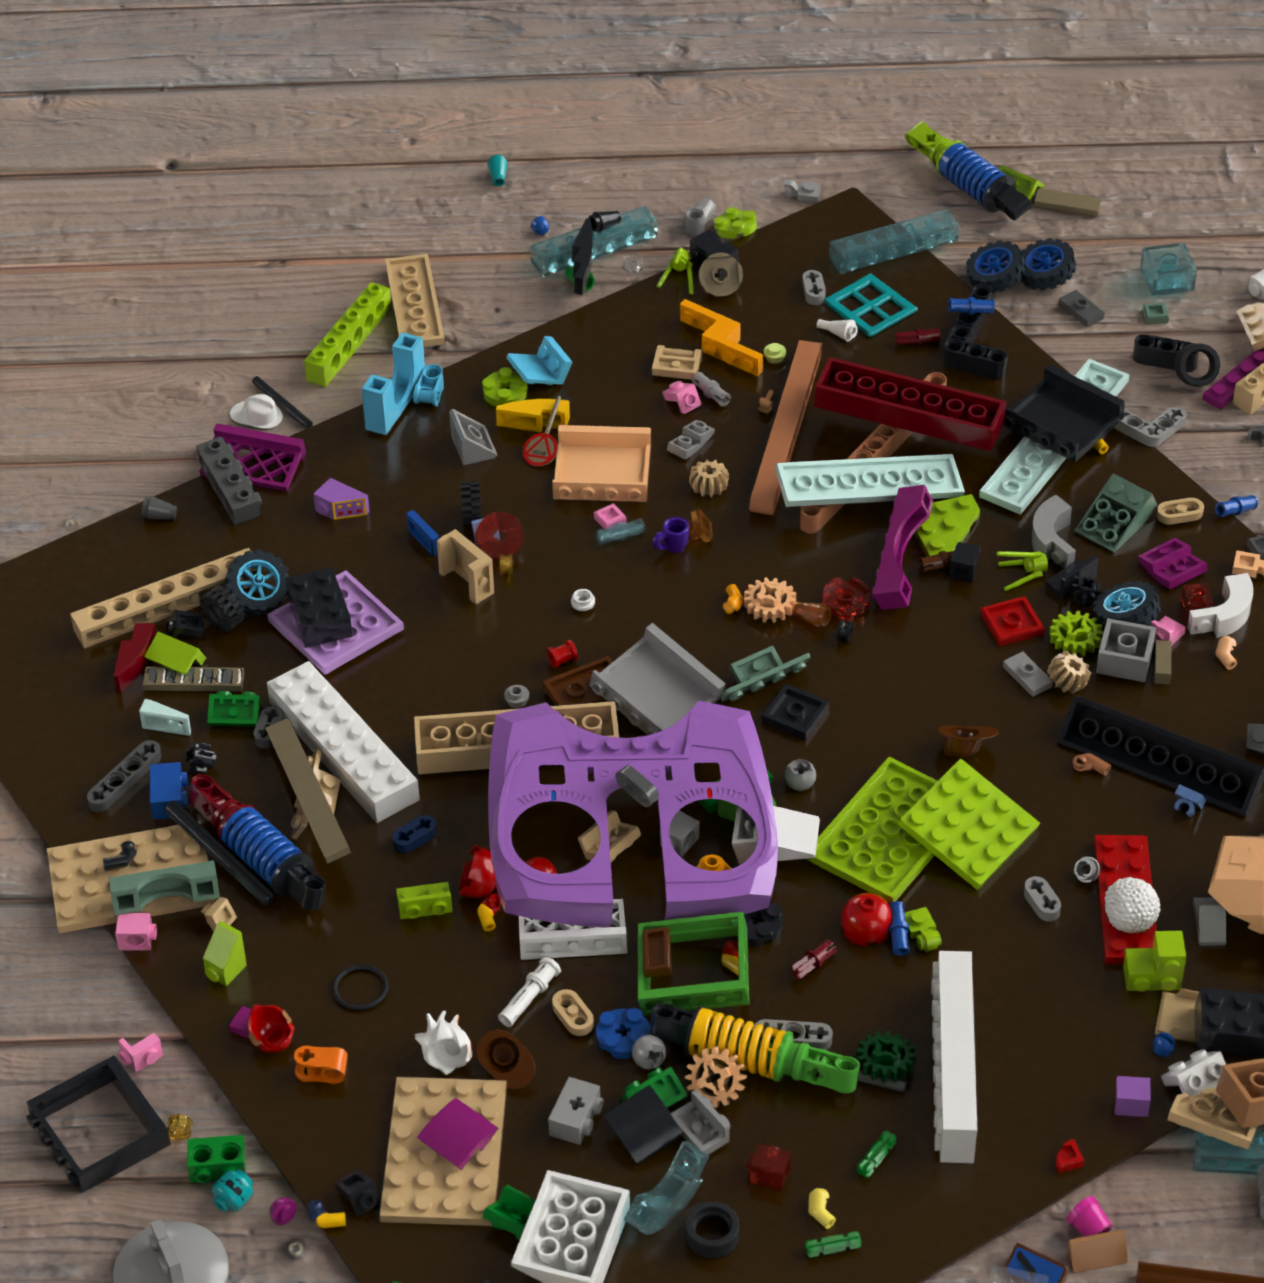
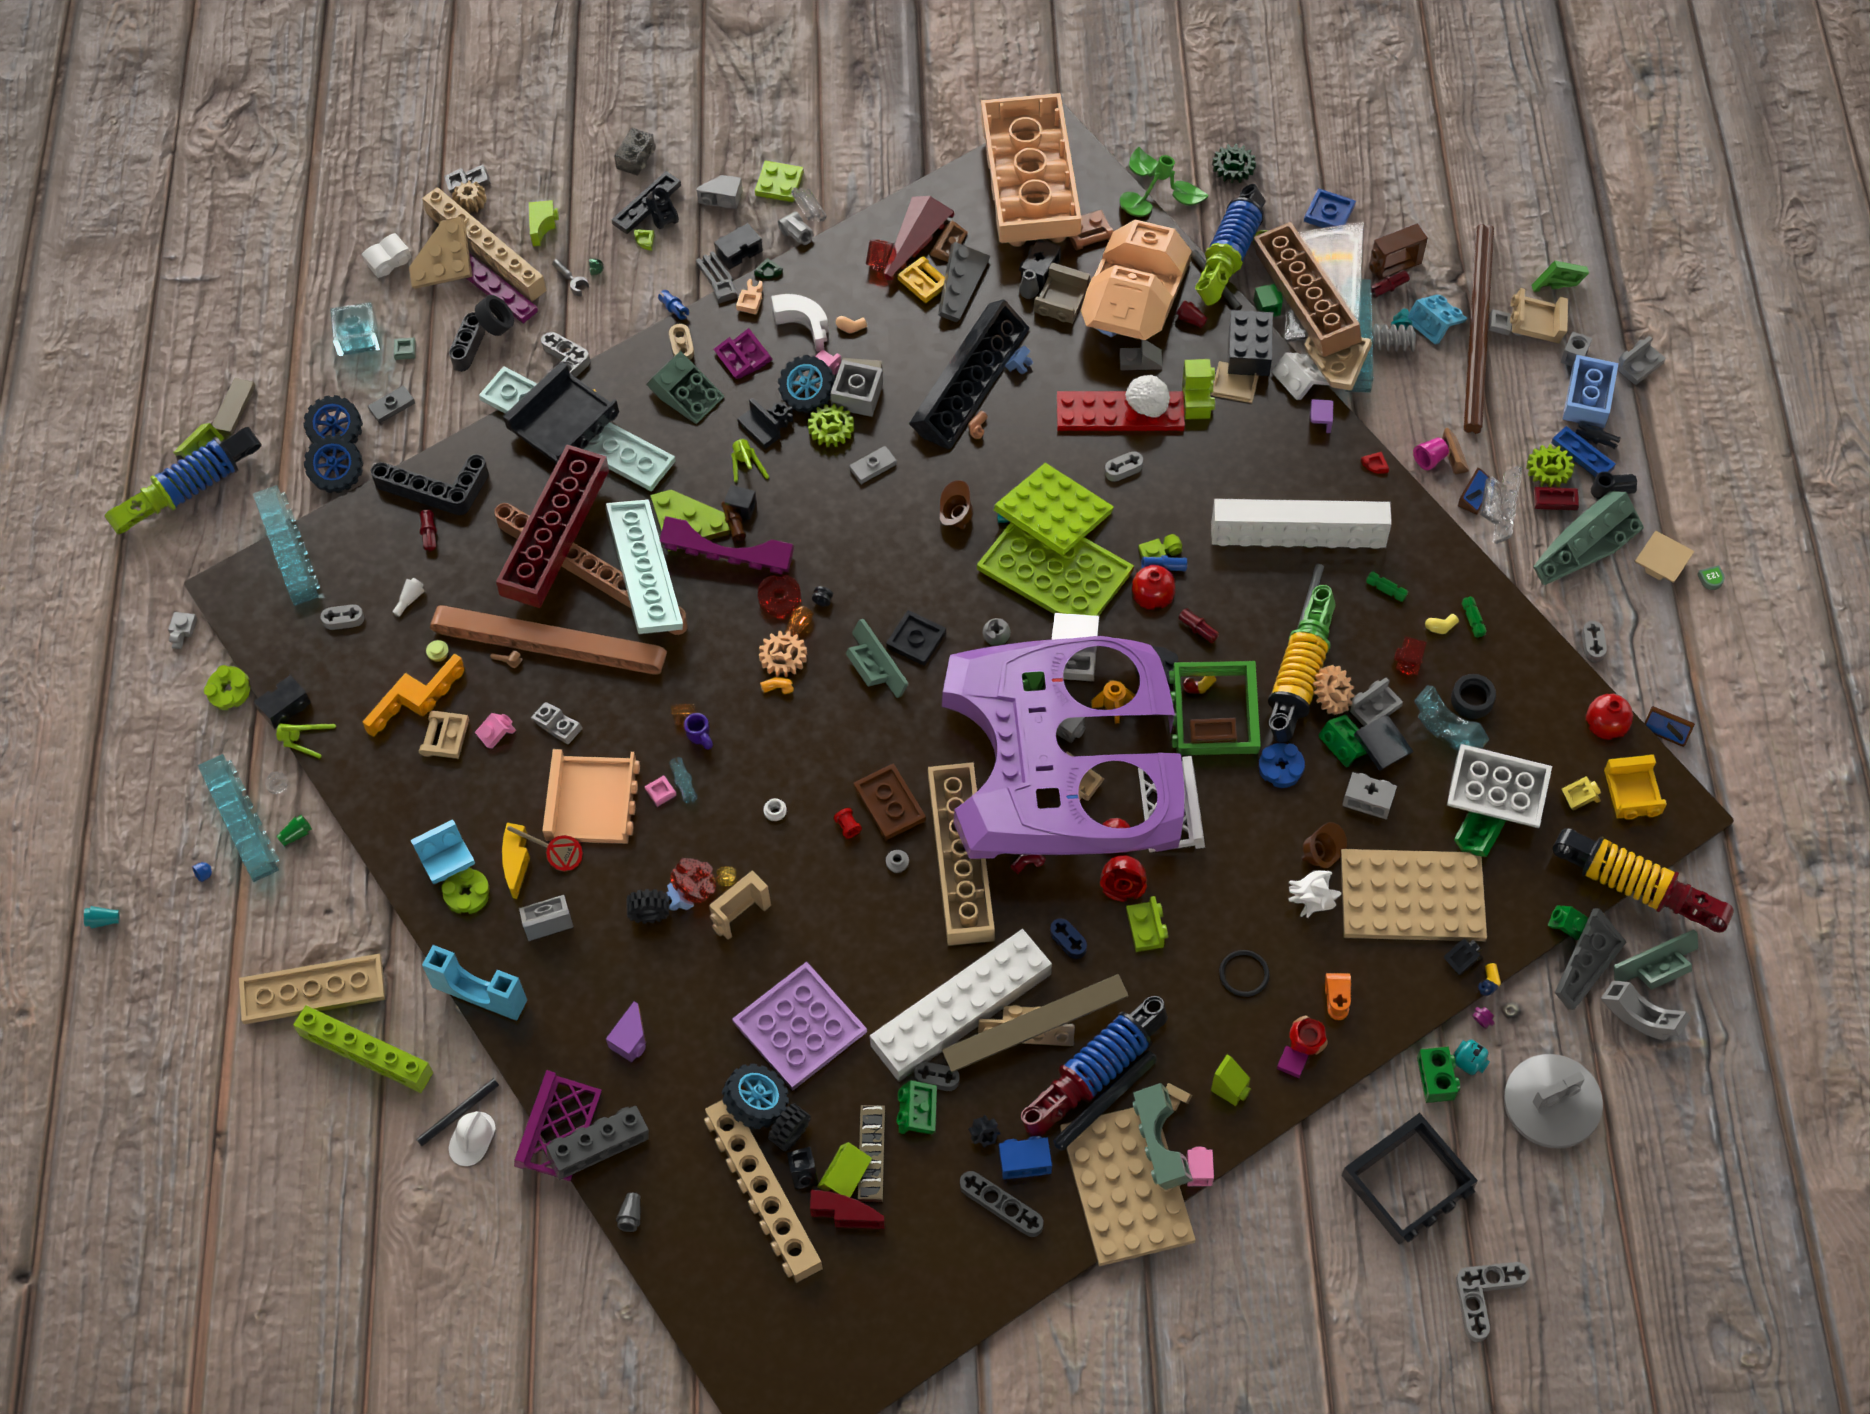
camera: 90 degrees left, 15 degrees up
(123, 859) = (1120, 1184): black arm -> none
(140, 1054) = (1330, 1148): bright pink bracket -> none
(163, 718) = (928, 1177): light aqua slope -> none
(179, 1127) = (1406, 1109): clear yellow bush -> none
(318, 607) = (796, 1032): black brick -> none
(422, 532) = (680, 952): blue tile -> none
(429, 385) = (468, 957): medium azure piece -> none
(457, 1133) = (1409, 876): magenta slope -> none
(487, 910) = (1158, 875): arm -> none
(535, 983) = (1236, 830): white pin -> none
(573, 1015) = (1264, 801): tan plate -> none
(582, 257) = (276, 814): black slope -> none
(603, 220) = (226, 799): black cone -> none
(637, 786) = (1064, 728): dark grey beam -> none
(656, 682) = (895, 741): light grey panel -> none
(656, 1051) = (1307, 741): light grey piece -> none
(698, 216) = (211, 721): light grey piece -> none
(709, 478) = (625, 704): tan gear -> none
(711, 389) = (488, 704): light grey pin -> none
(729, 266) = (317, 700): dark tan plate -> none
(812, 1028) = (1280, 634): light grey beam -> none
(886, 1056) = (1297, 574): dark green gear -> none
(887, 294) = (372, 570): teal window -> none
(971, 305) = (409, 476): blue pin -> none
(1012, 621) = (808, 473): red tile -> none
(1048, 520) = (705, 442): light grey arch -> none
(1069, 672) = (880, 430): tan gear -> none
(1081, 866) = (1100, 433): light grey plate -> none
(1164, 1044) = (1268, 397): blue hinge -> none
(1195, 597) = (796, 337): clear red brick -> none

